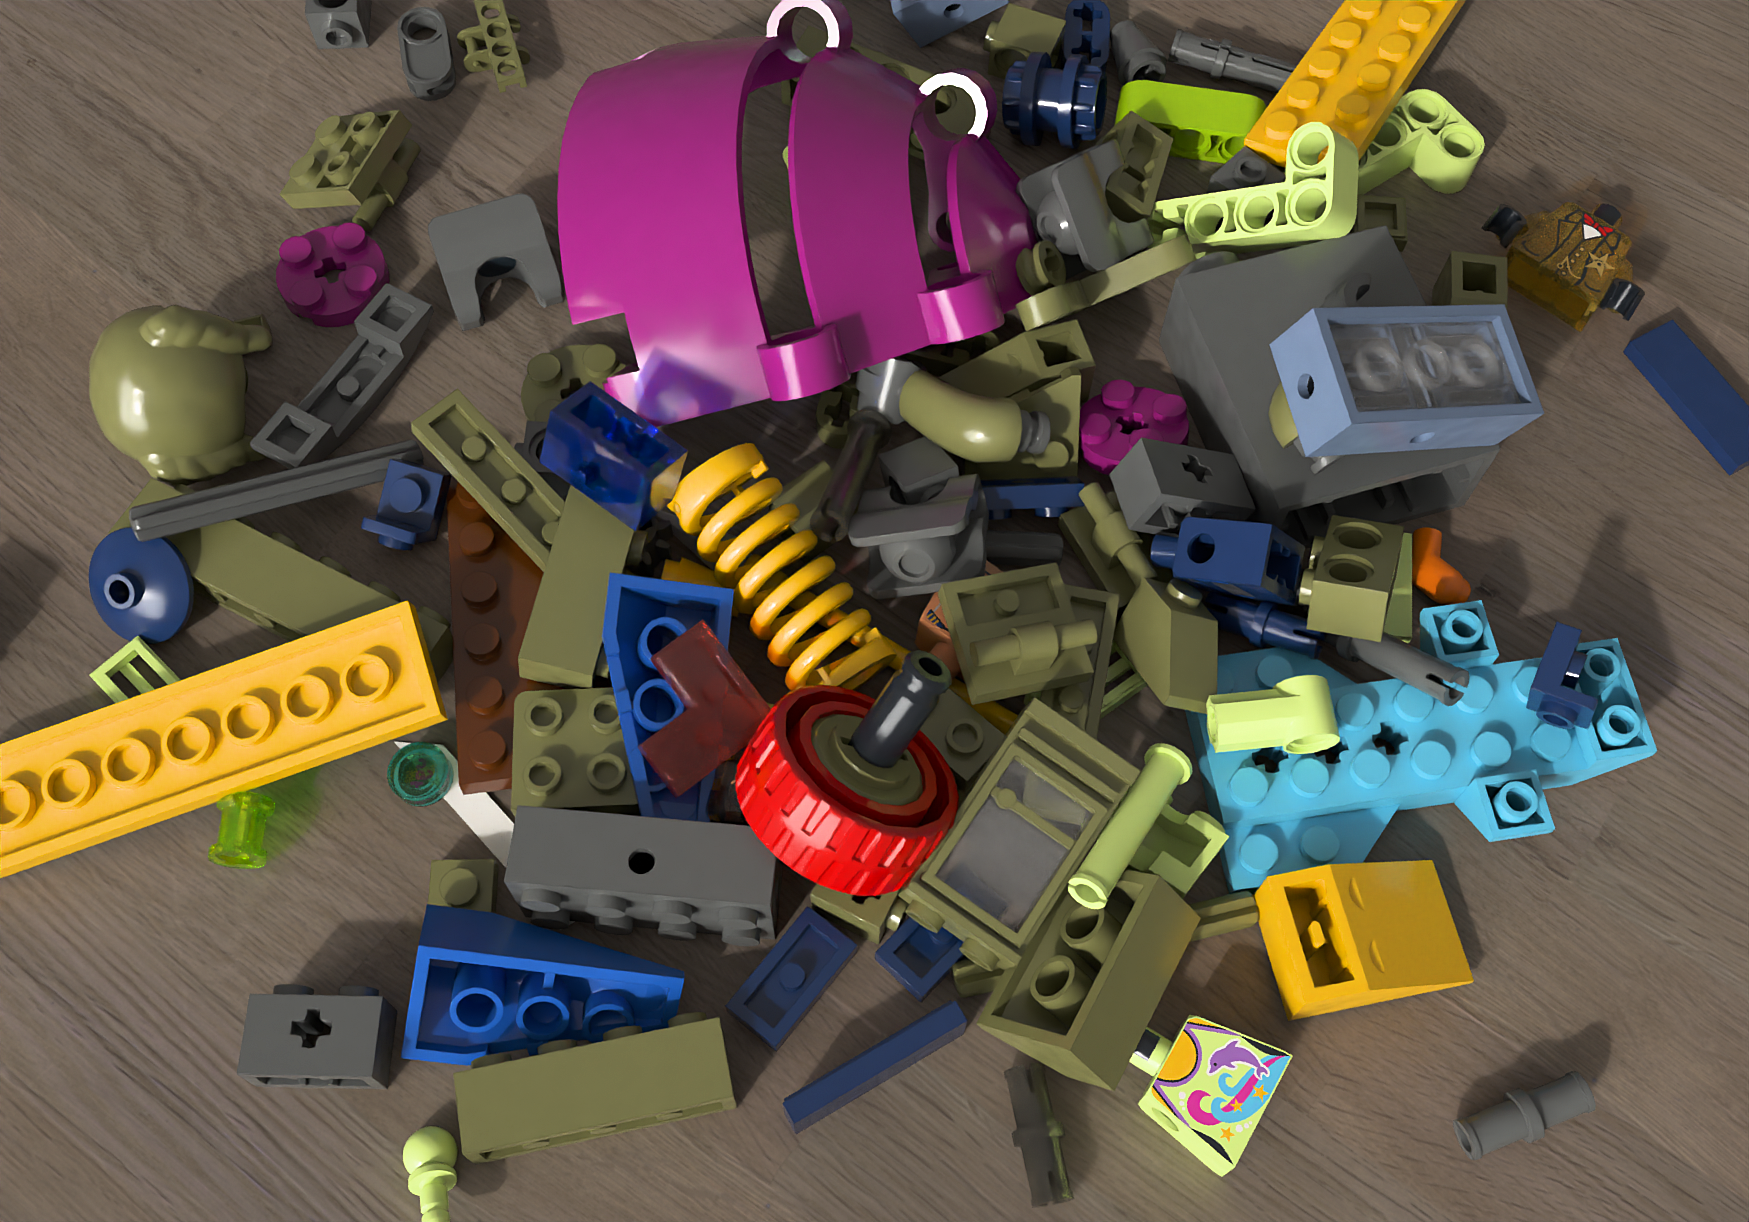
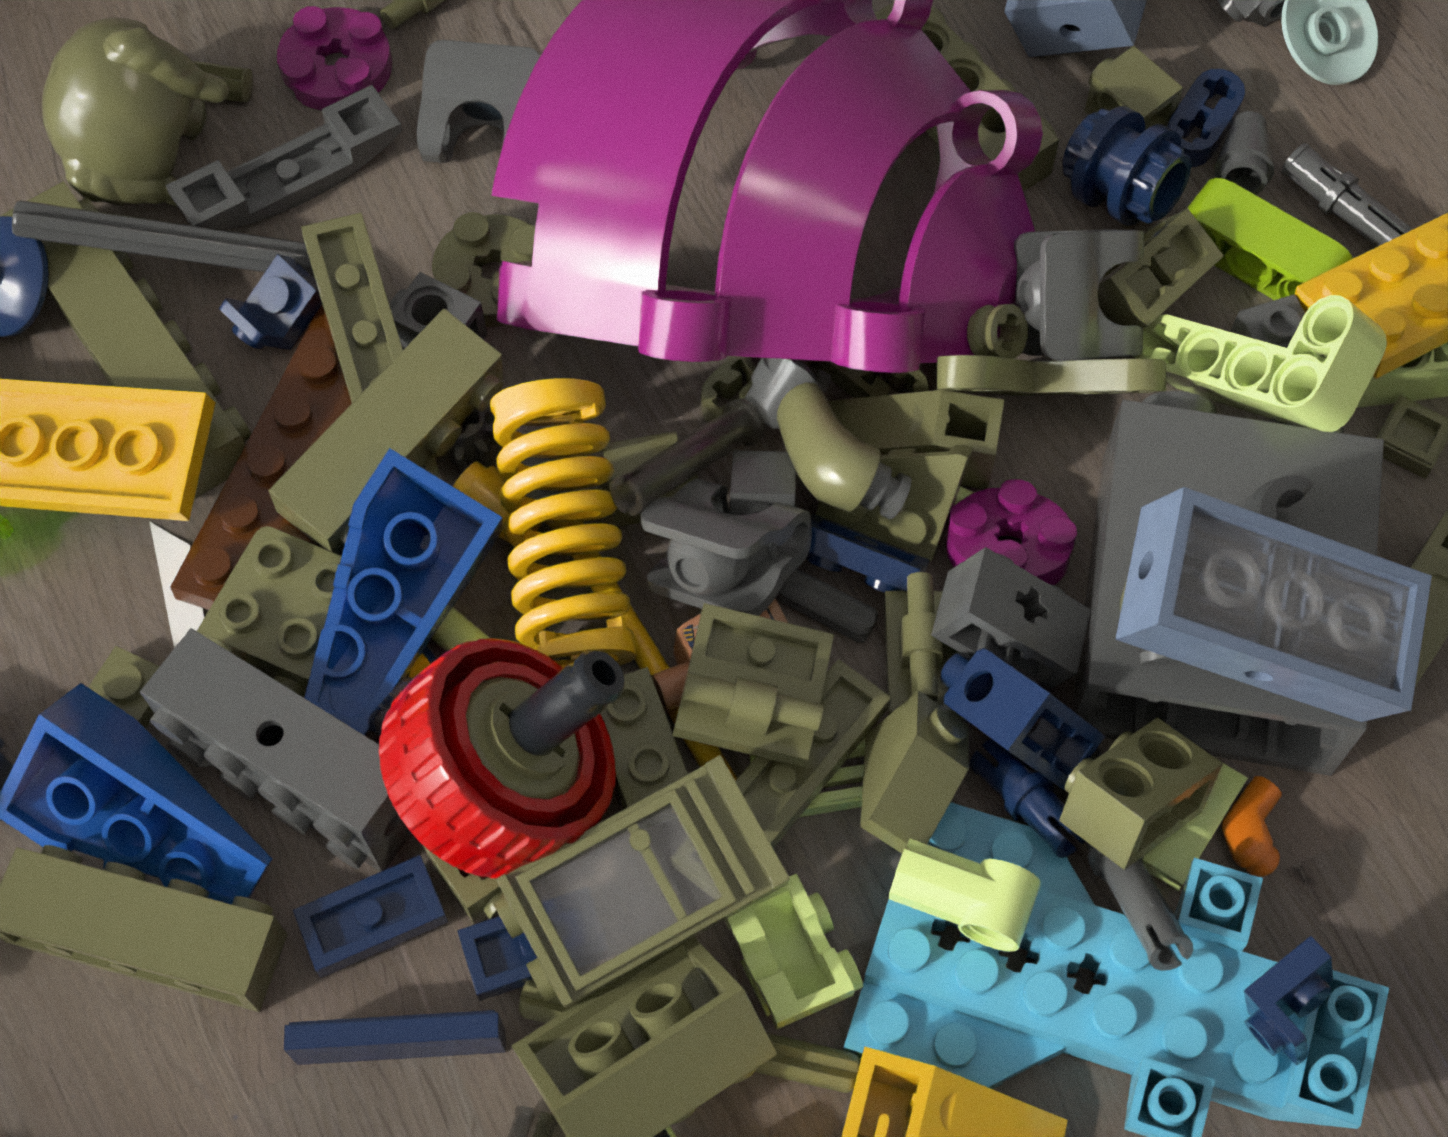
camera: 30 degrees right, 0 degrees up
(420, 774) = (151, 561): clear green tile -> none
(612, 455) = (446, 337): clear blue brick -> none
(719, 713) = (428, 619): clear red tile -> none
(1129, 825) = (755, 927): yellowish green pin -> none

